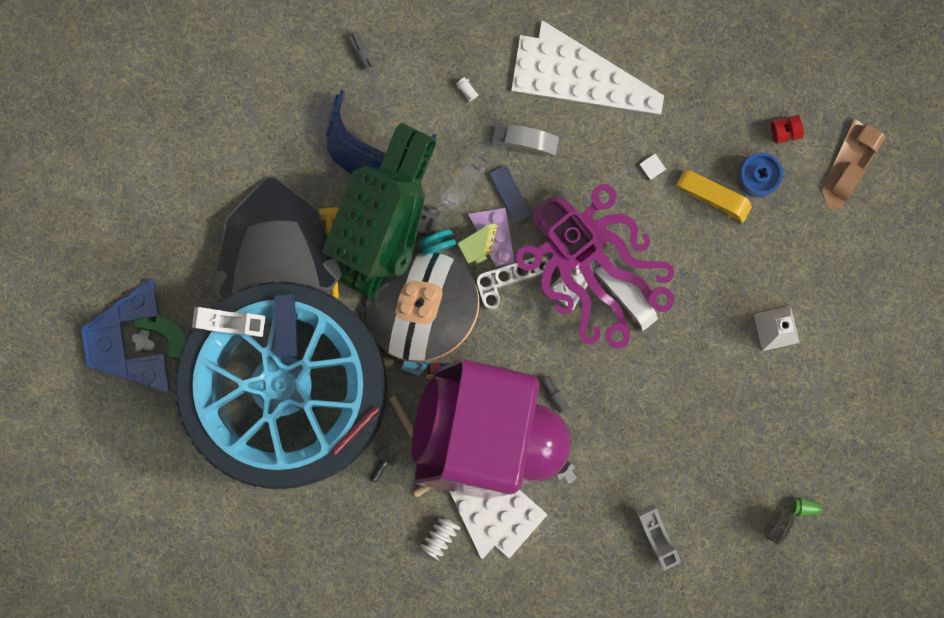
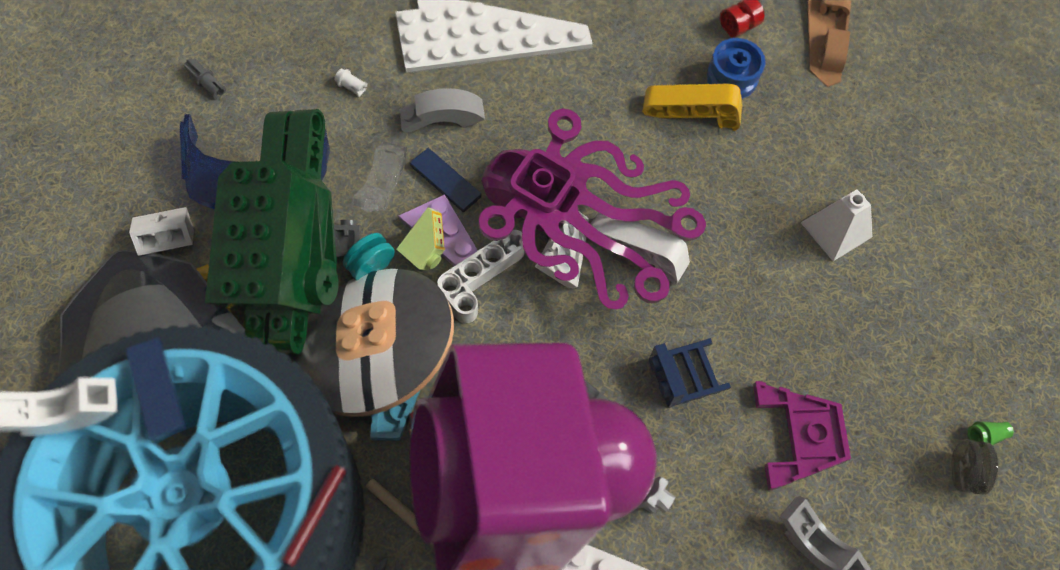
camera: 20 degrees left, 20 degrees down
(303, 174) = (161, 231): none -> white brick
(608, 400) = (670, 380): none -> dark blue plate
(652, 167) = (606, 100): white tile -> none
(689, 465) = (814, 430): none -> magenta wing

